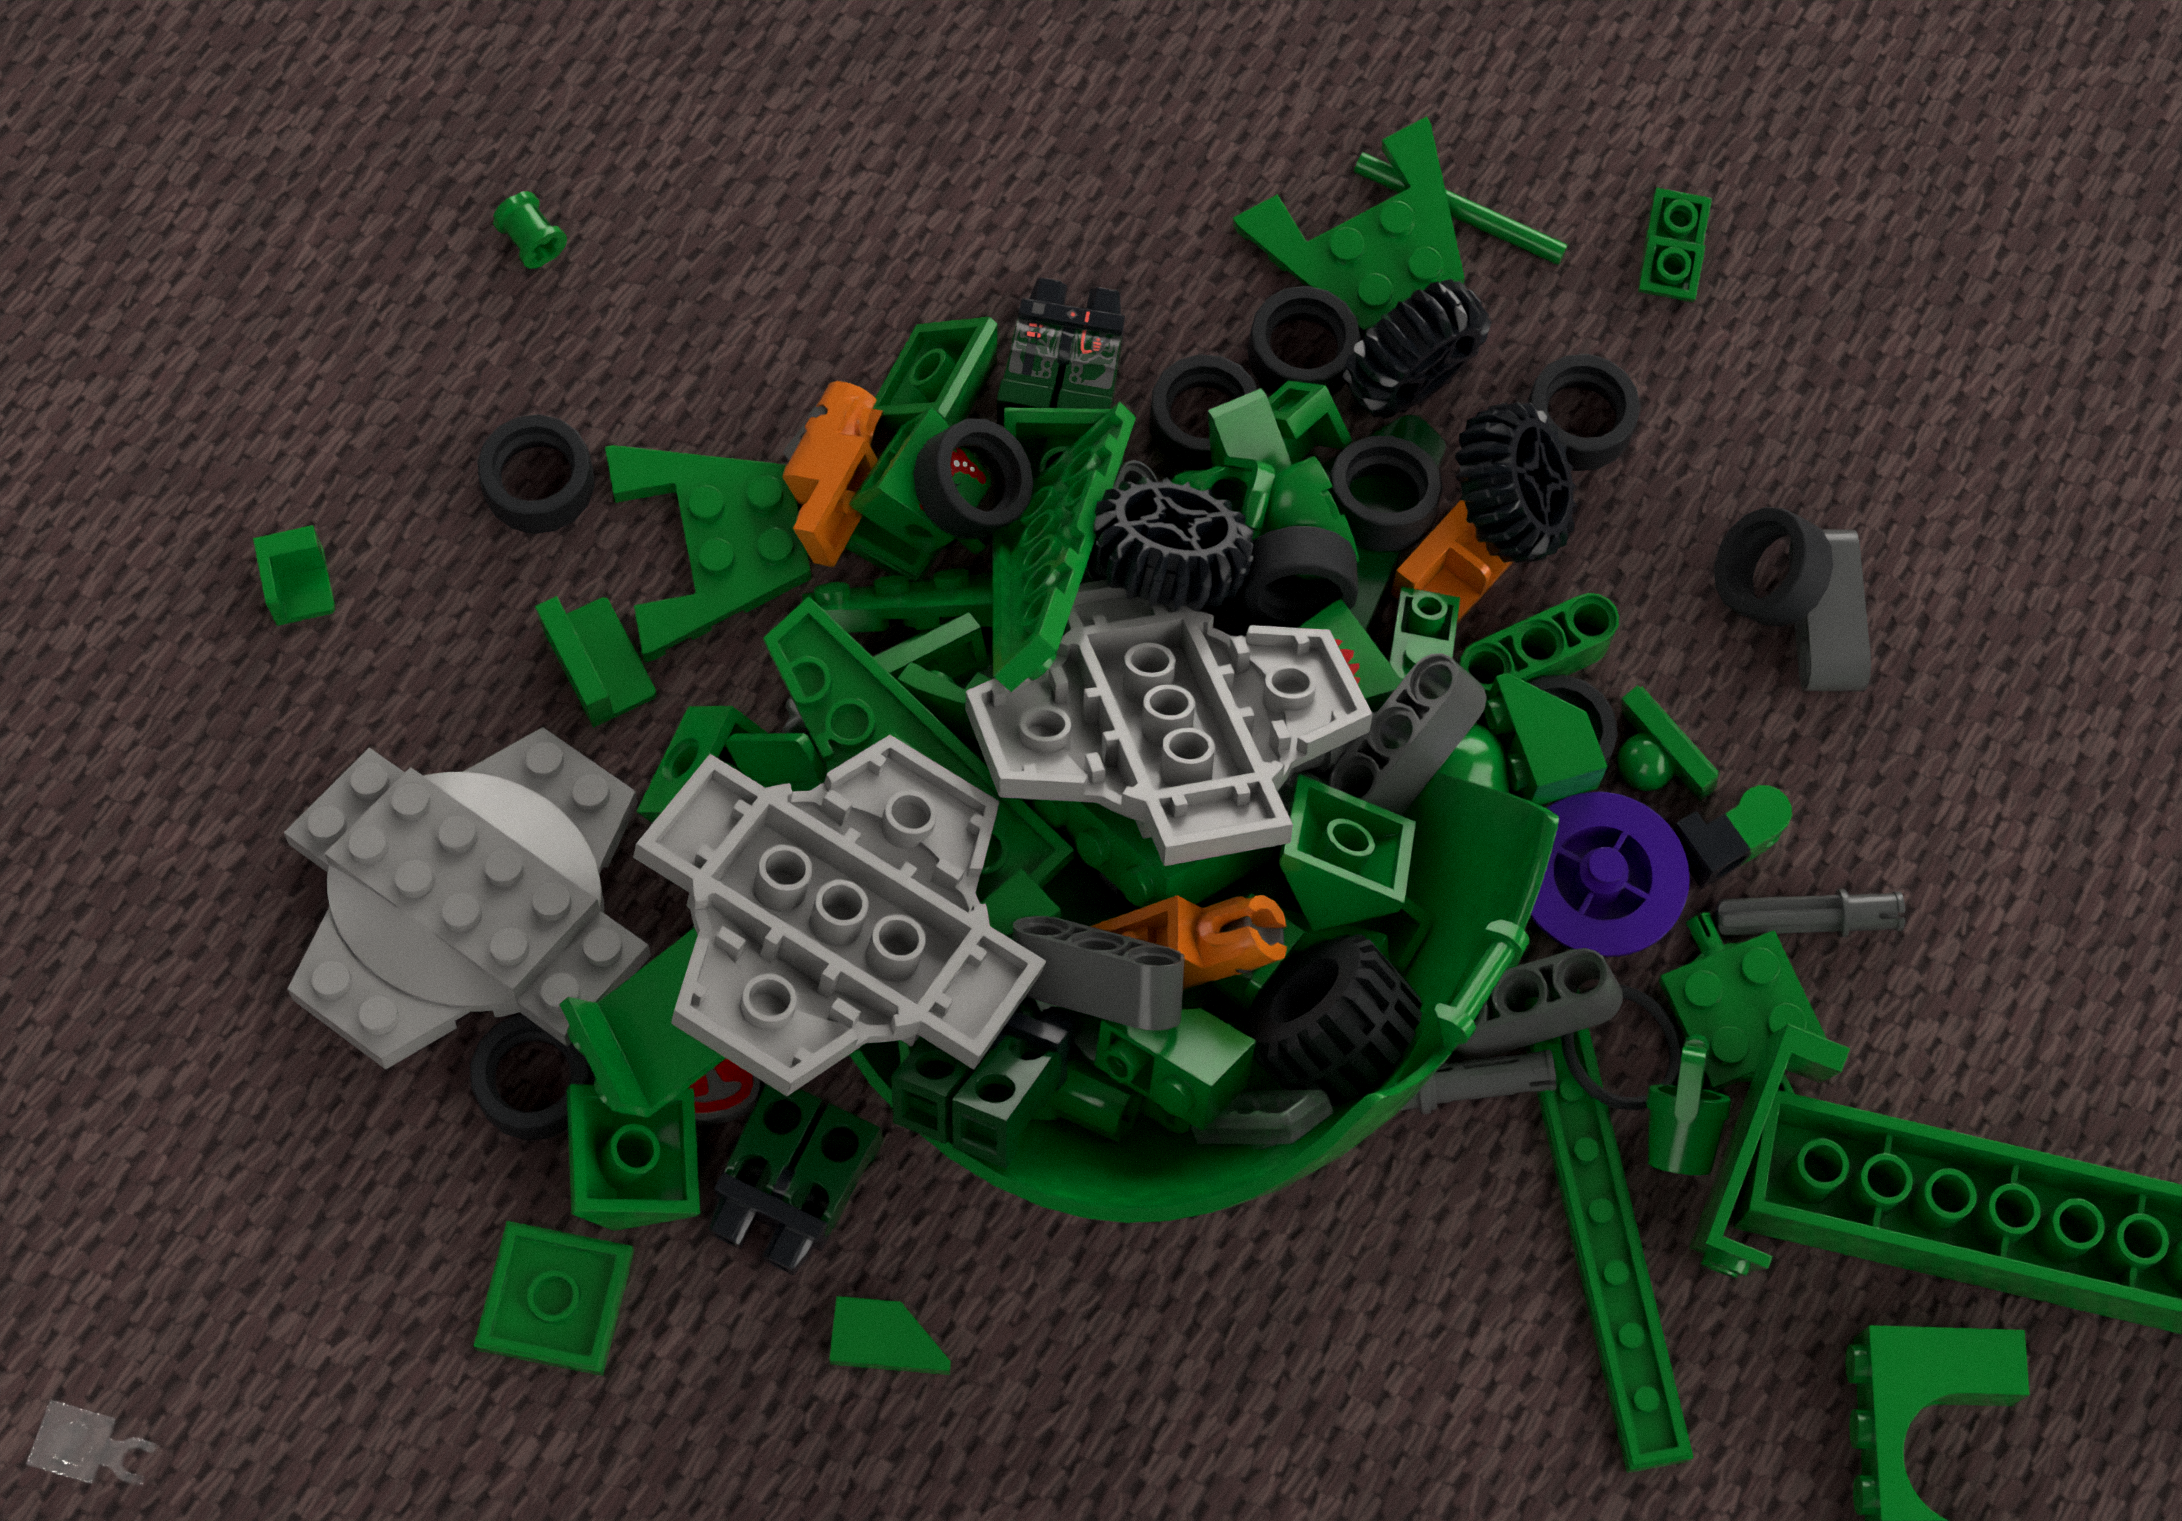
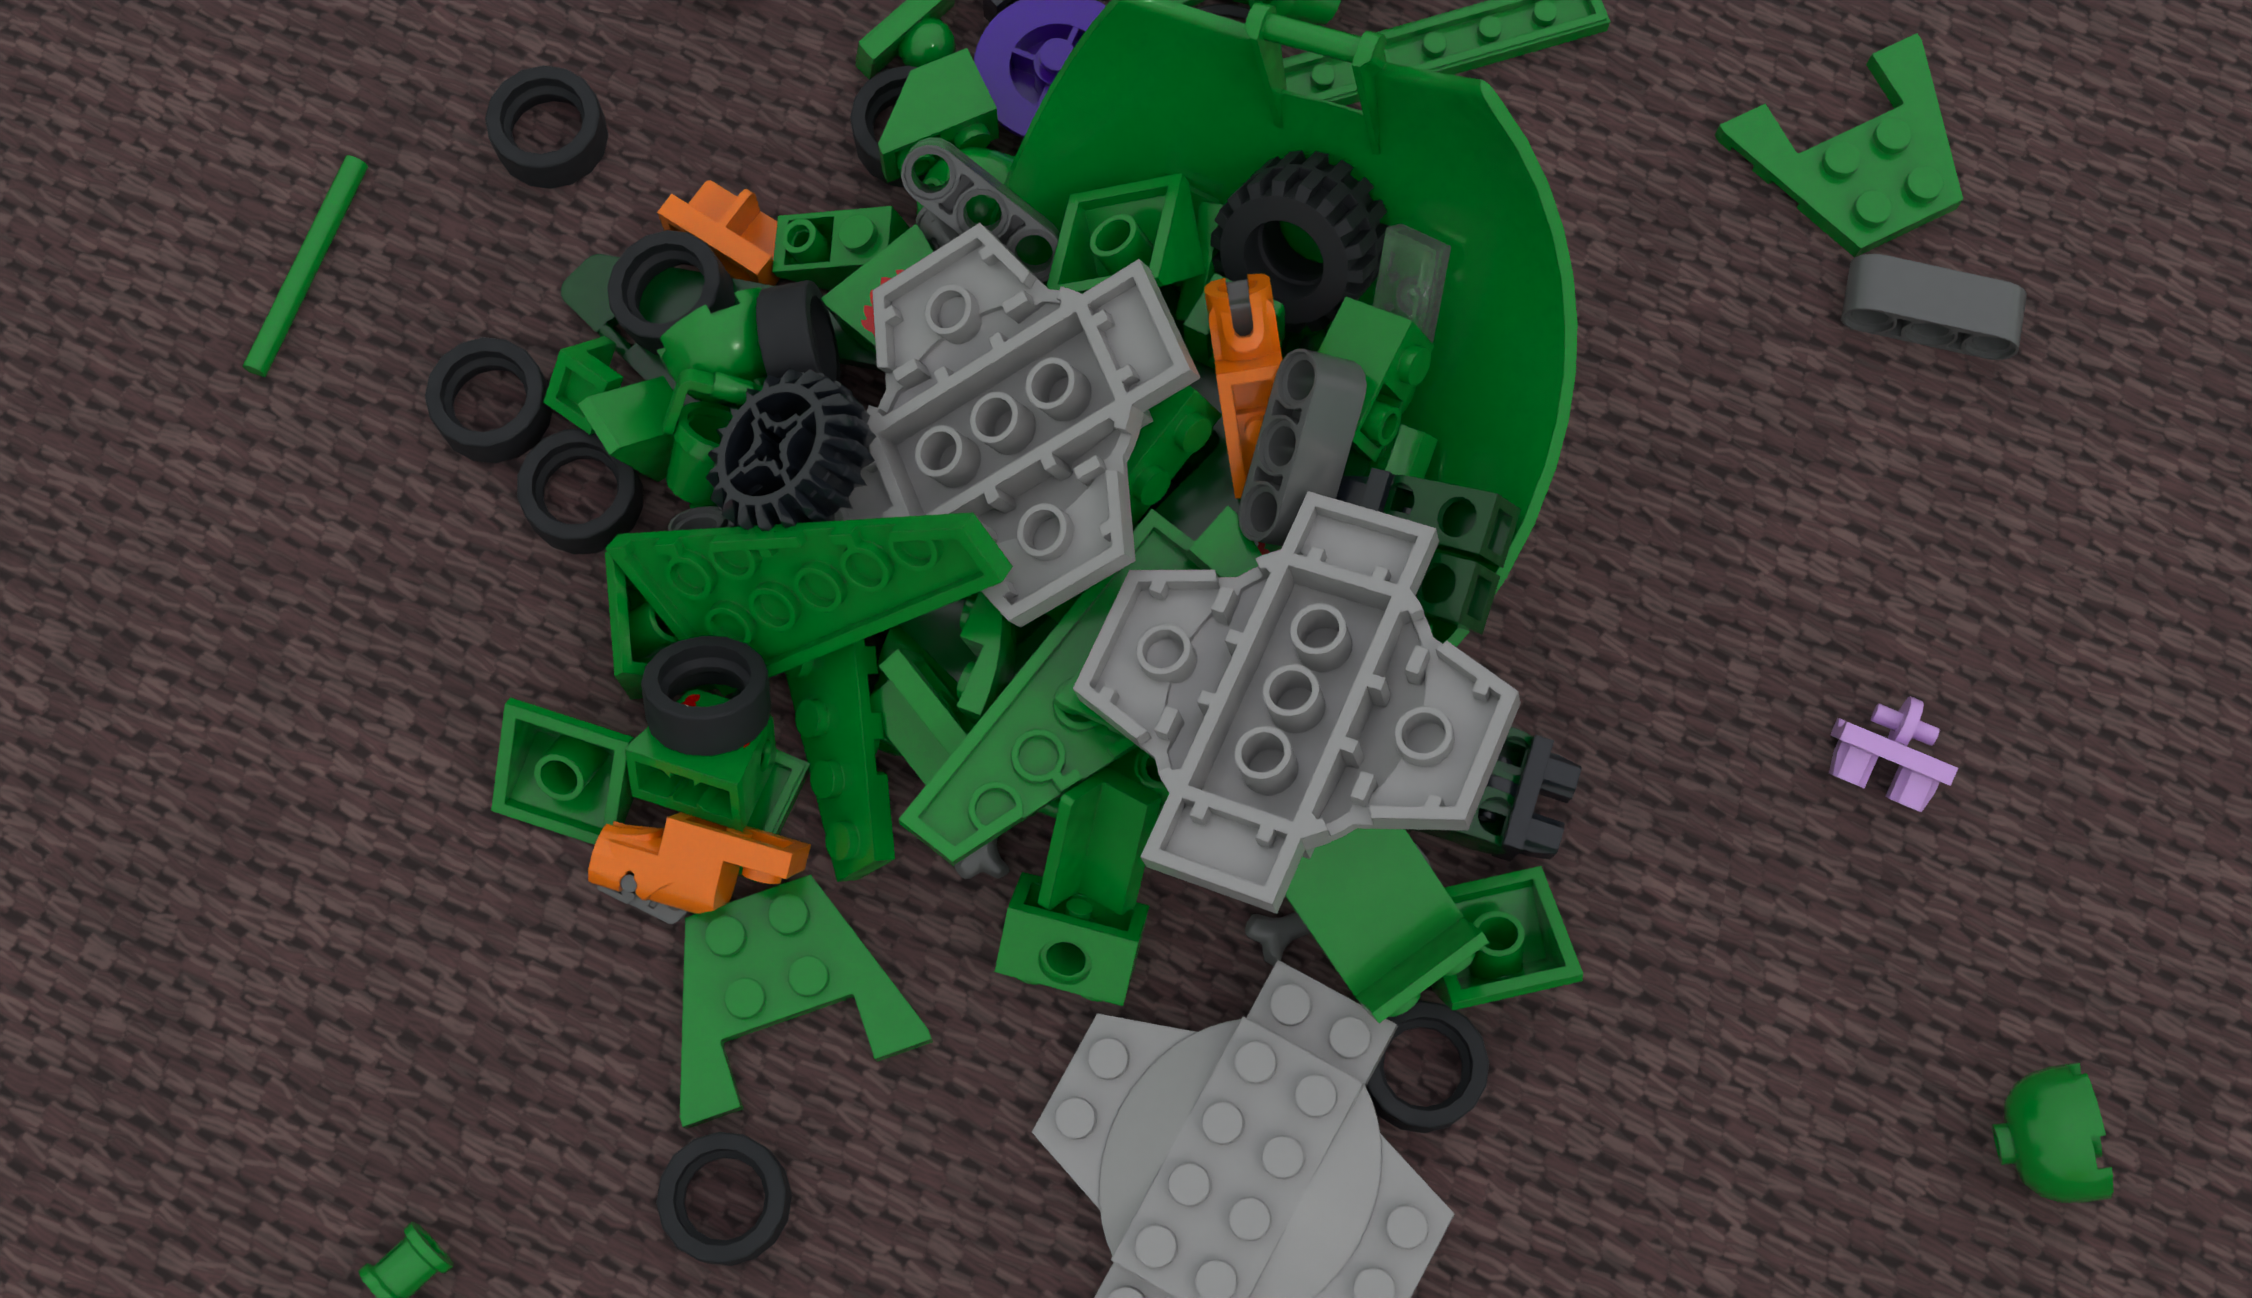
camera: 95 degrees left, 5 degrees up
(554, 1298) = (1641, 1005): green tile -> none
(596, 658) = (939, 1090): green panel -> none
(883, 1337) = (1619, 682): green tile -> none
(1064, 342) = (531, 640): hips -> none
(1380, 252) = (375, 328): green wing -> none
(1416, 348) = (497, 274): black gear -> none
(1516, 482) = (650, 164): black gear -> none
(1554, 634) = (815, 126): green beam -> none
(1674, 245) = (345, 59): green slope -> none

